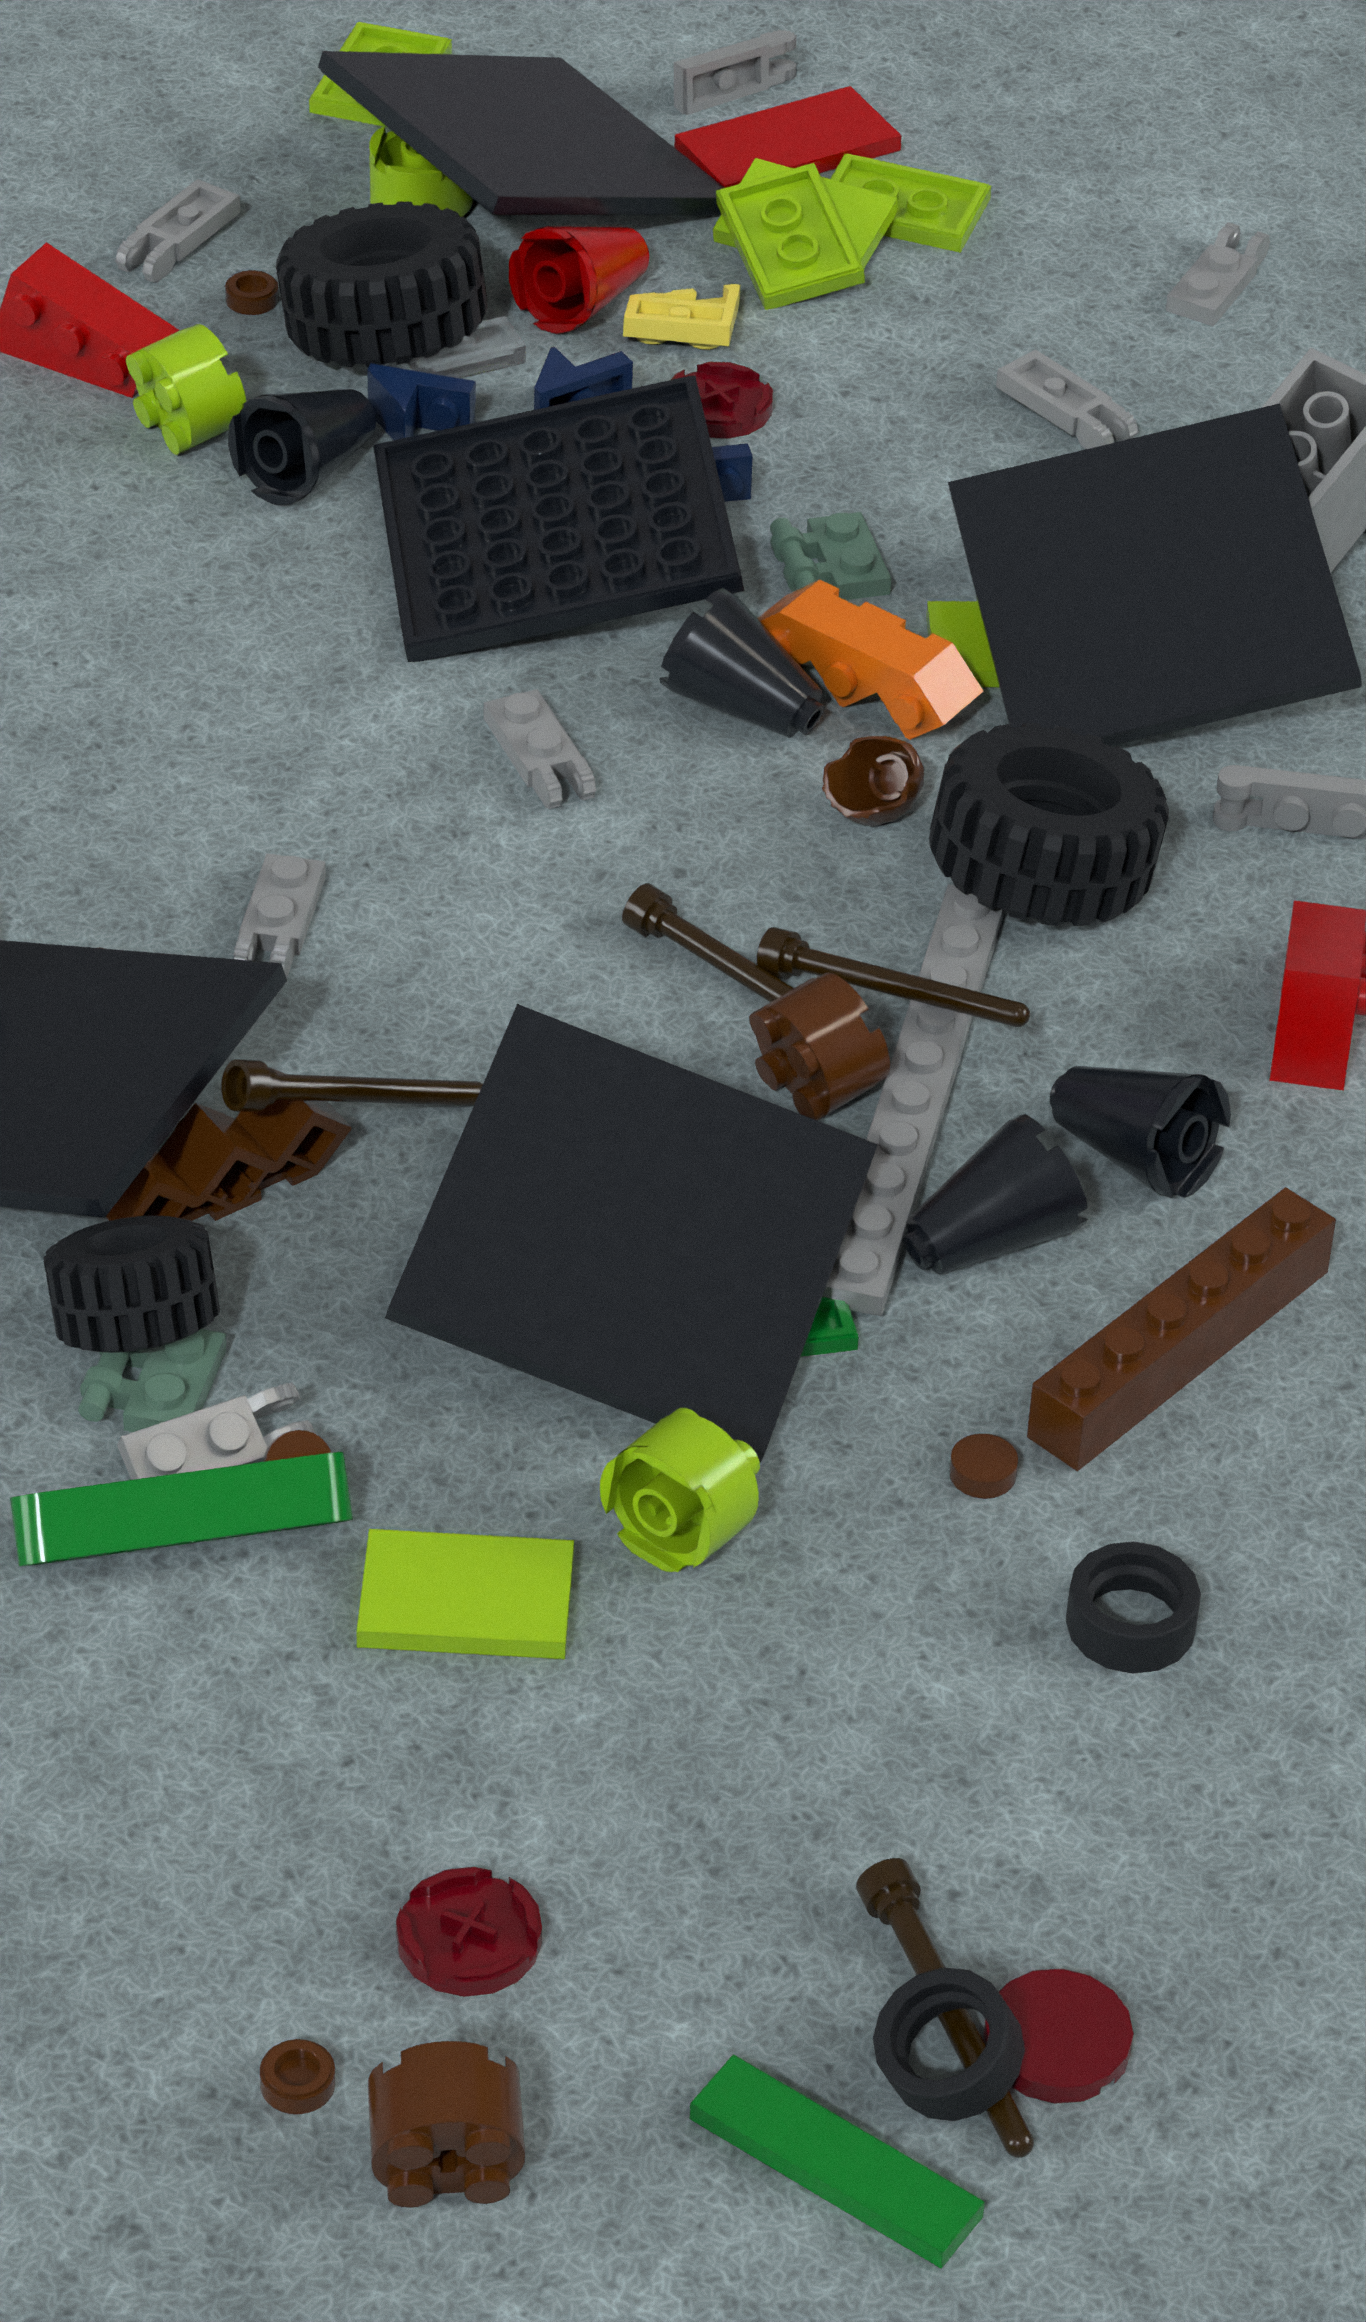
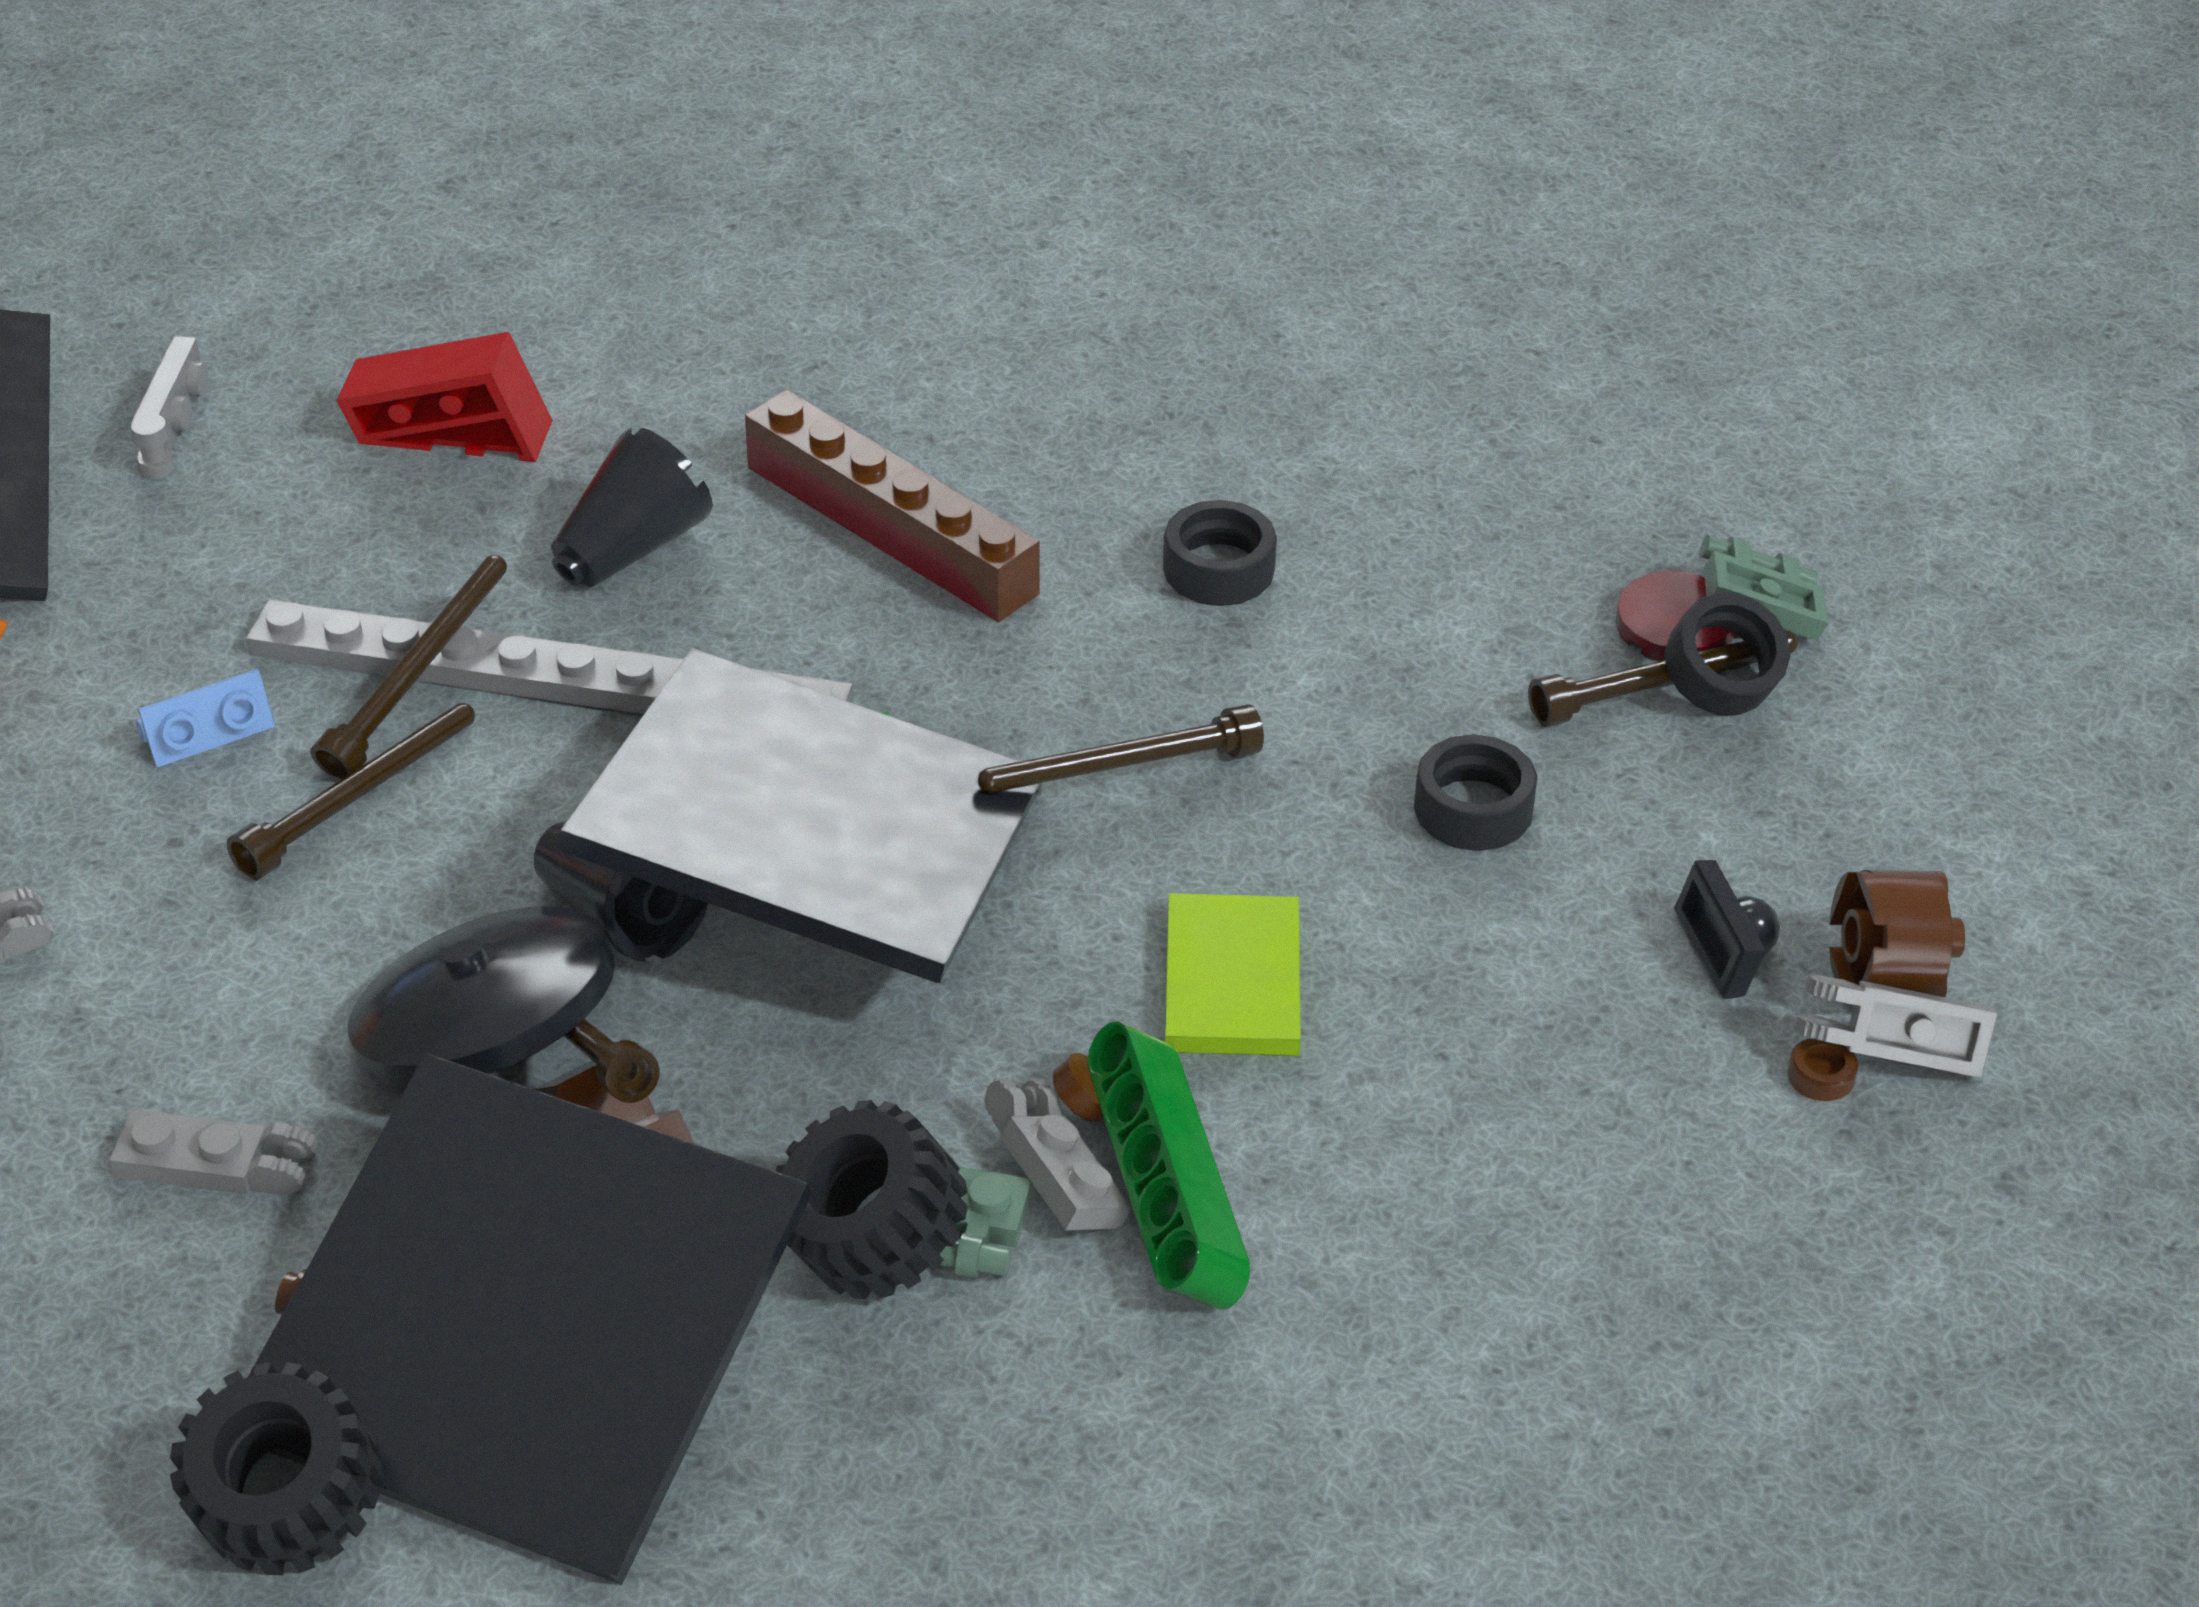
camera: 90 degrees left, 0 degrees up
(322, 2121) = (1903, 1025): none -> light grey hinge
(402, 1034) = (483, 993): none -> black dish
(469, 1932) = (1636, 963): dark red tile -> none
(497, 2000) = (1725, 929): none -> black tile
(681, 1490) = (1130, 799): lime brick -> none
(716, 1843) = (1472, 824): none -> black tyre
(819, 1045) = (514, 706): reddish brown brick -> none
(823, 1604) = (1233, 732): none -> dark brown piece
(833, 868) = (205, 718): none -> light blue hinge
(837, 2161) = (1828, 742): green tile -> none
(874, 780) = (86, 674): reddish brown hair -> none
(983, 1466) = (1046, 641): reddish brown tile -> none
(997, 1202) = (732, 594): black cone -> none
(1048, 824) = (212, 537): black tyre -> none
(1070, 2106) = (1773, 581): none -> sand green plate

